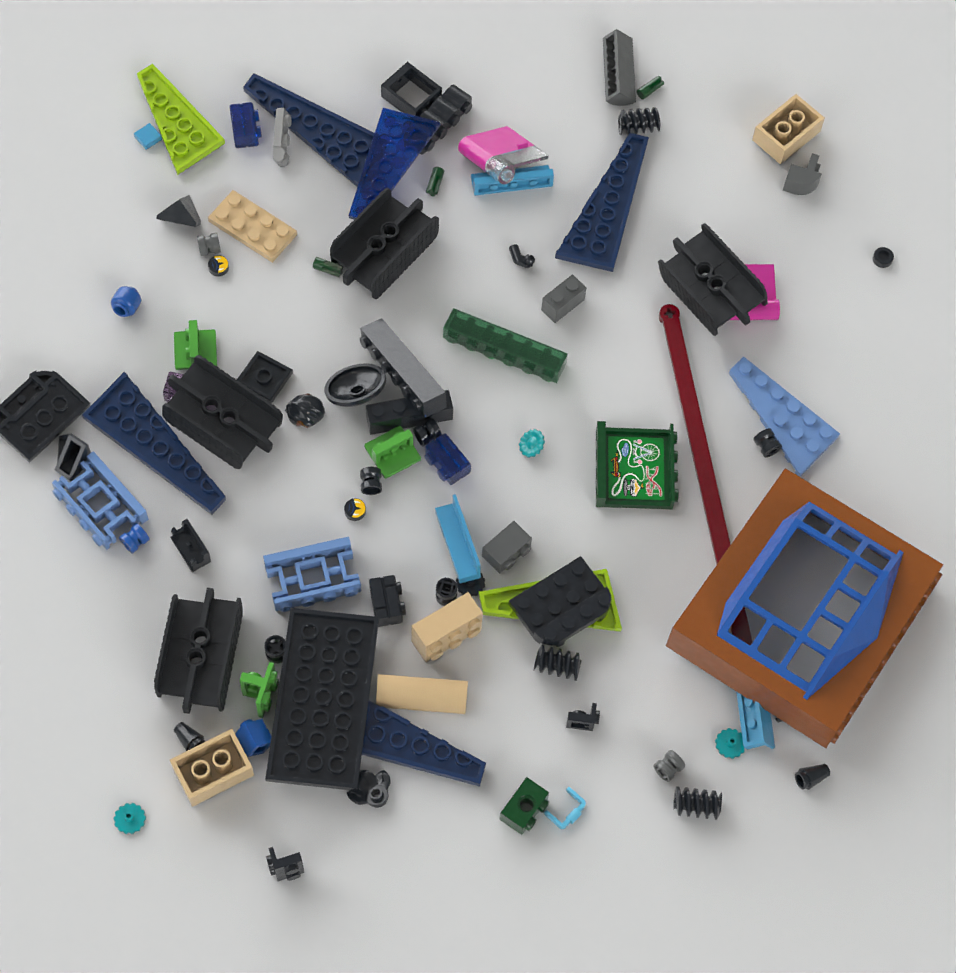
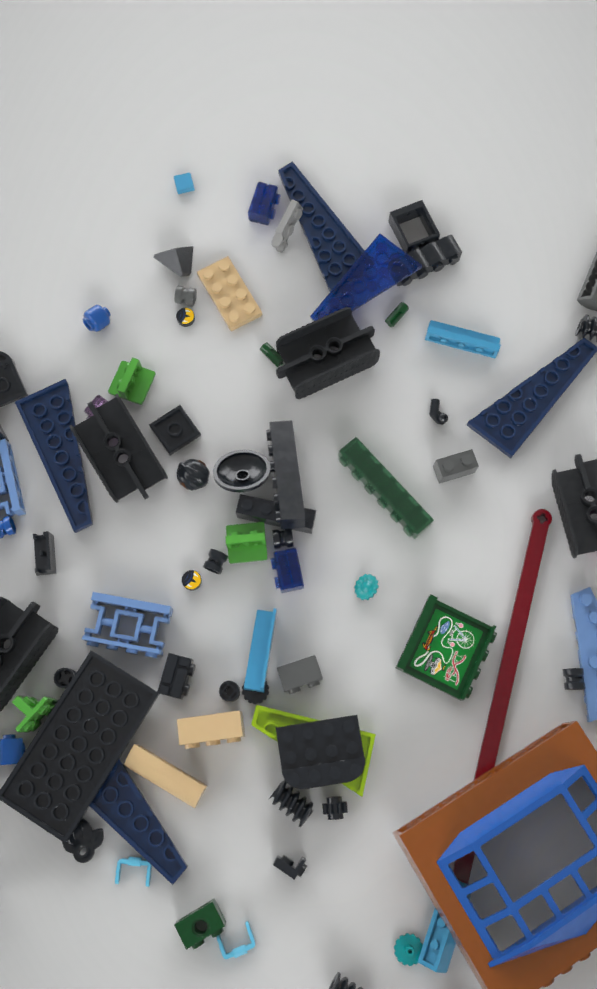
camera: 30 degrees right, 10 degrees up
(182, 127) = (213, 185): lime wing -> none
(431, 784) = (133, 861): none -> medium azure piece
(500, 152) = (463, 312): door -> none
(600, 649) = (334, 808): none -> black gear
(669, 765) = (338, 950): dark grey wheel -> none

